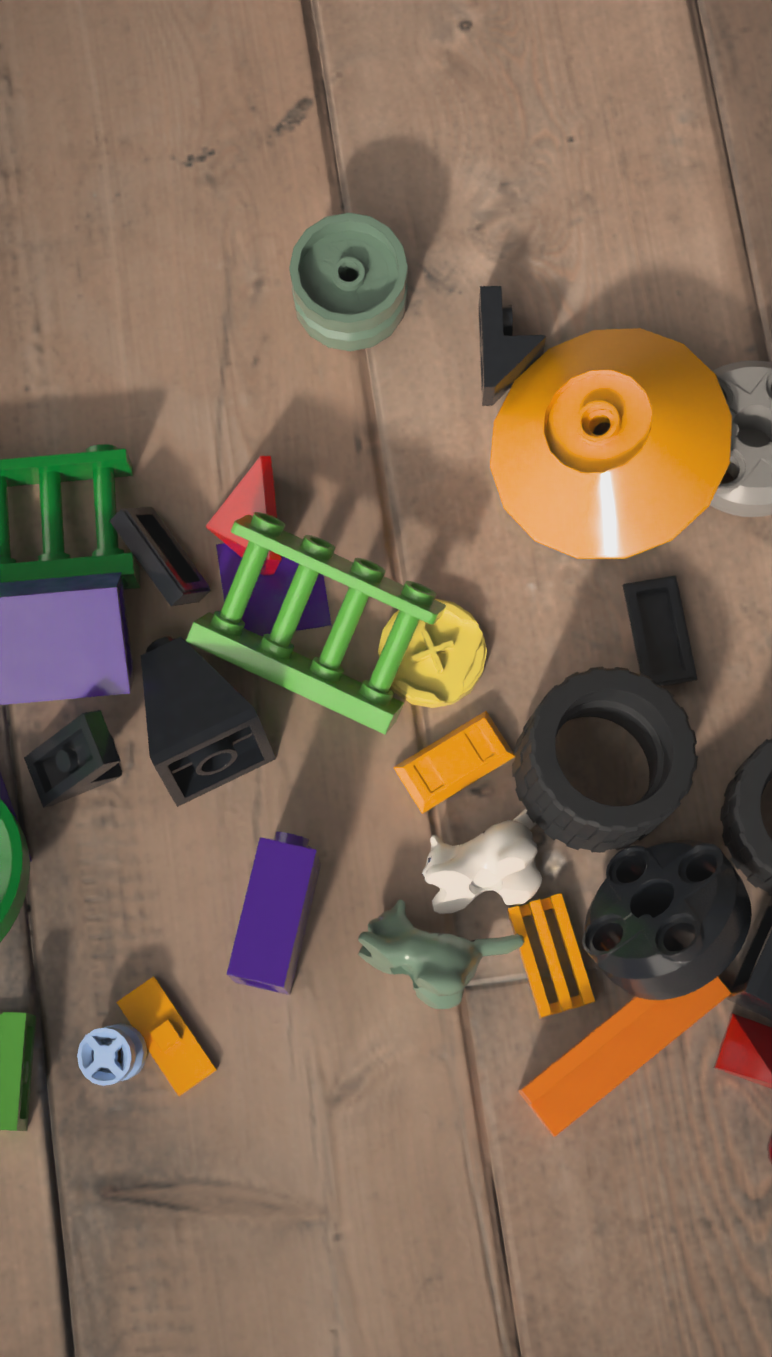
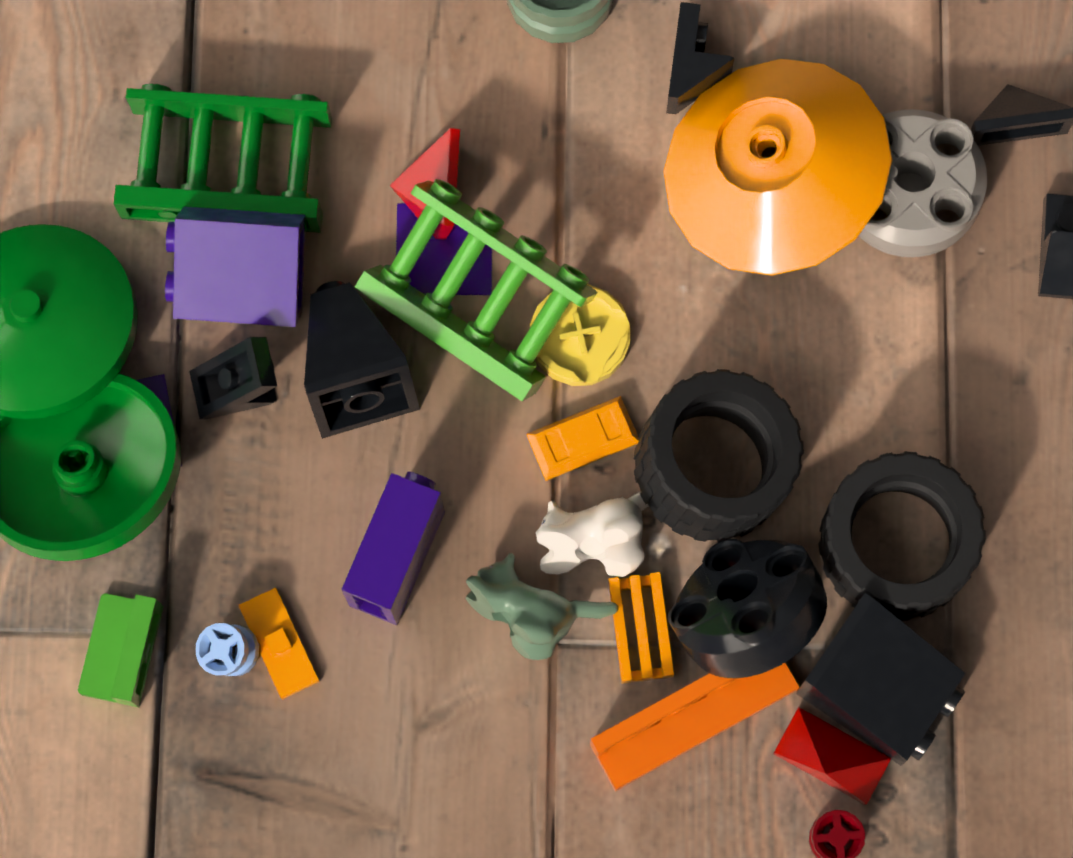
camera: 10 degrees right, 0 degrees up
(160, 555) = (344, 205): black tile -> none
(660, 630) = (794, 348): black tile -> none

